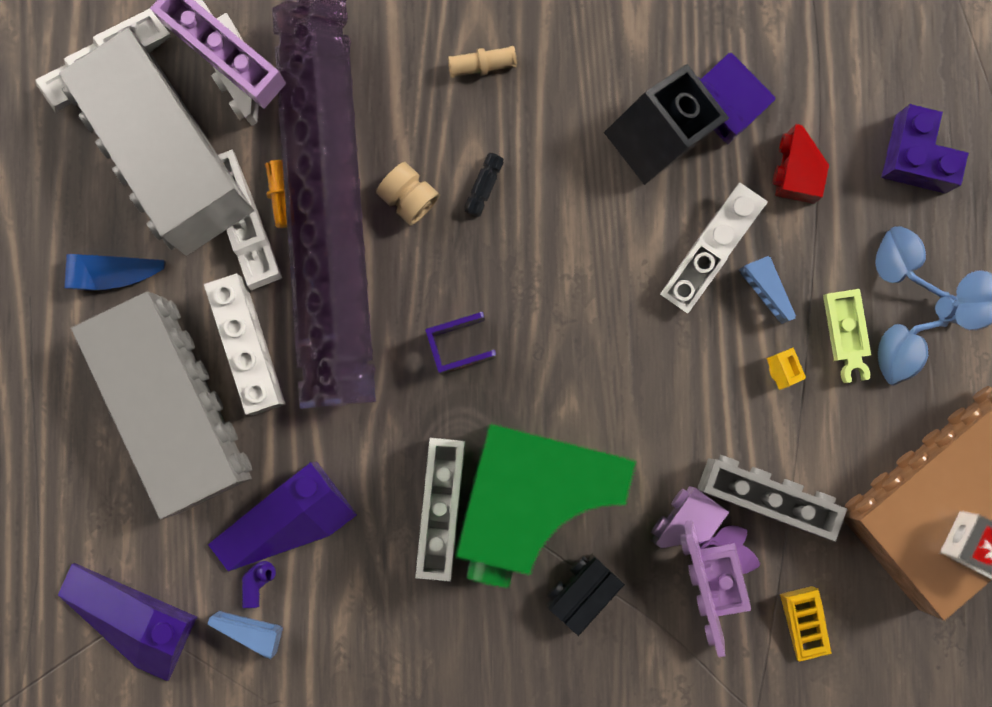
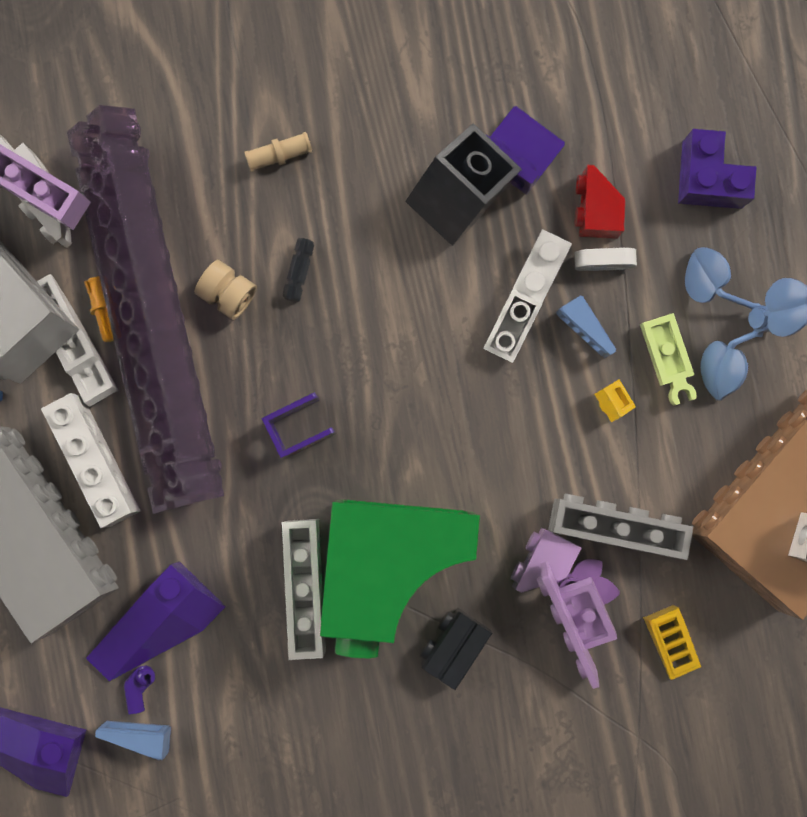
camera: 10 degrees left, 0 degrees up
(798, 223) = (605, 259): none -> white beam

